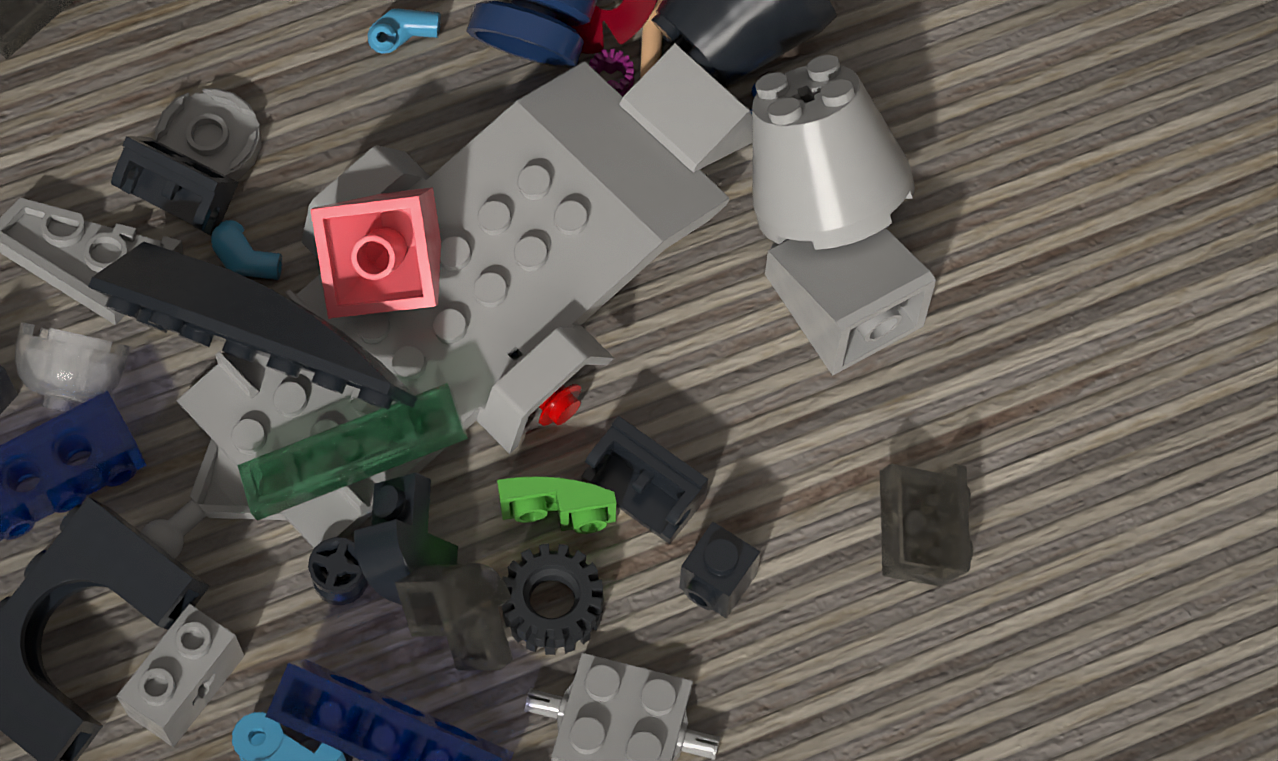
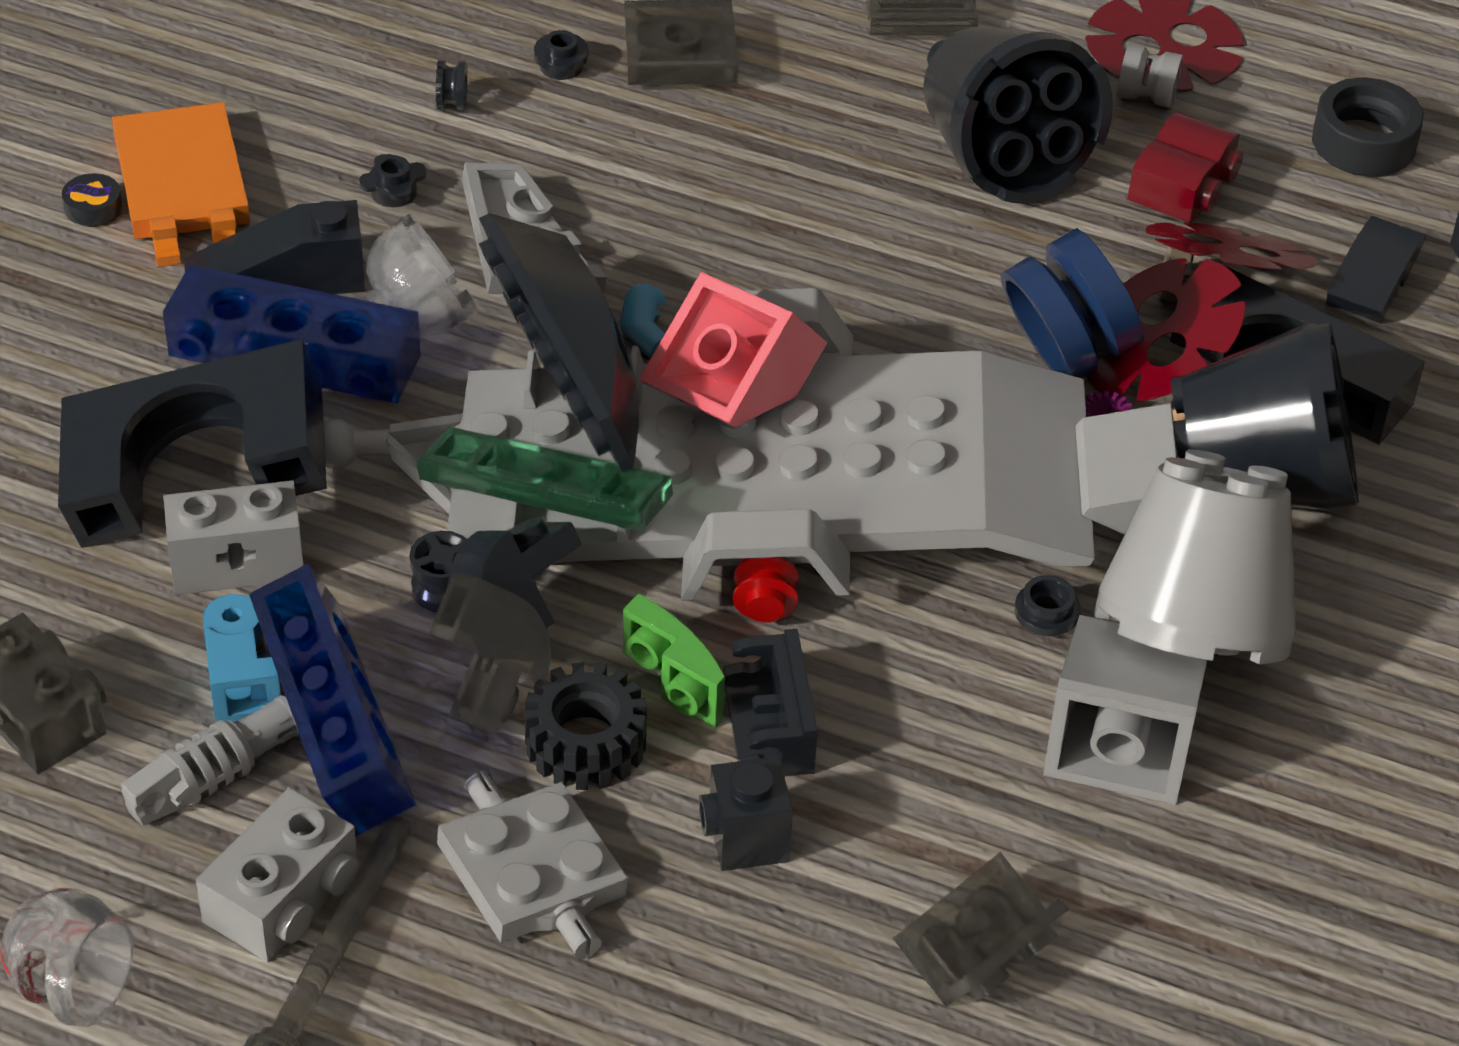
camera: 45 degrees right, 20 degrees down
(174, 182) = (646, 229): black hinge -> none
(213, 130) = (715, 234): light grey tile -> none
(399, 26) = (961, 267): dark azure arm -> none
(722, 240) = (1047, 606): none -> black plate

